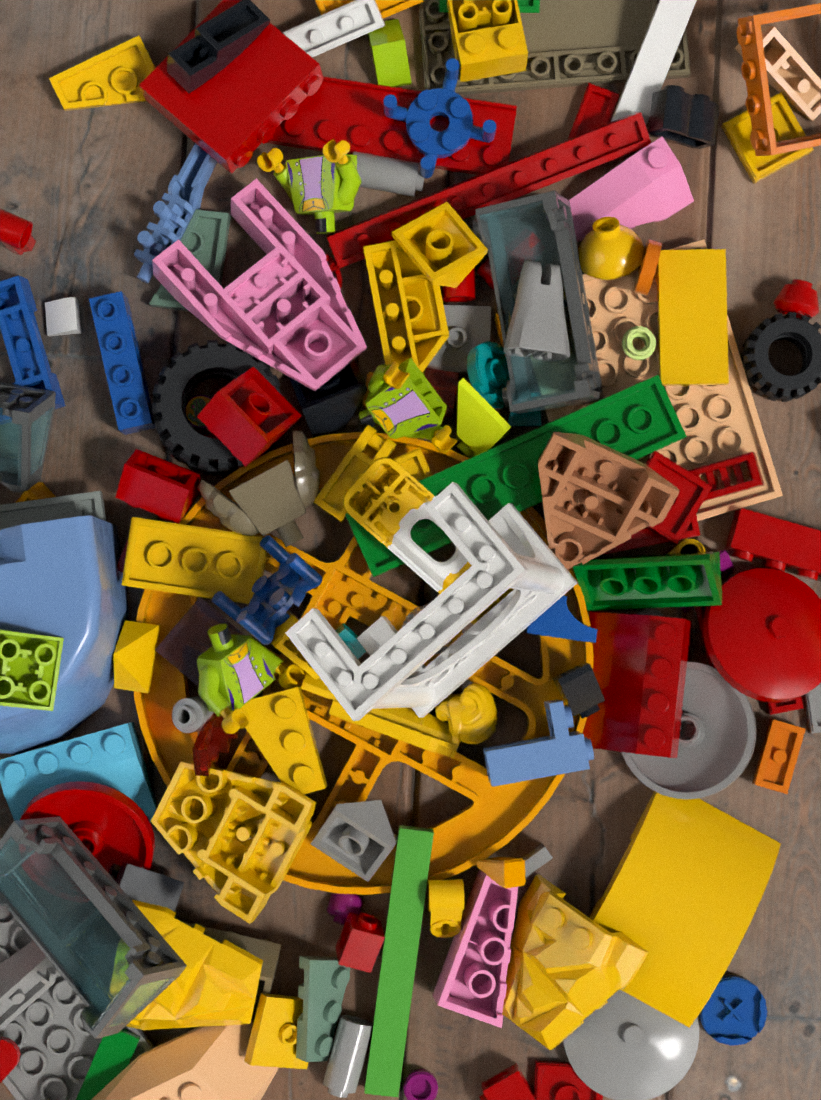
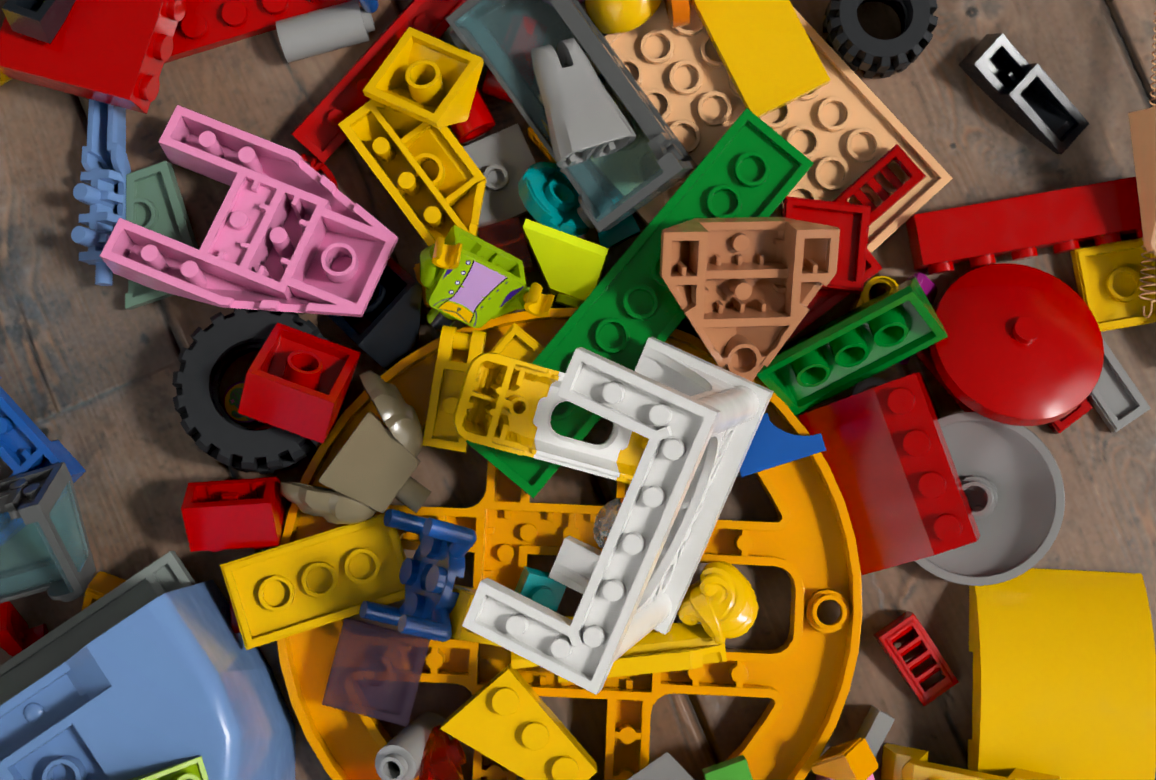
camera: 25 degrees left, 0 degrees up
(63, 317) = (34, 370): white slope -> none
(122, 362) = (125, 389): blue brick -> none
(135, 656) = (303, 723): yellow slope -> none
(236, 672) = (427, 688): lime torso -> none
(317, 183) = (252, 76): torso -> none
(541, 756) = (829, 611): medium blue brick -> none
(580, 690) = (833, 512): black slope -> none
(588, 797) = (897, 629): none -> red slope
(648, 339) = (712, 72): yellowish green plate -> none
(778, 756) = (1092, 476): orange plate -> none

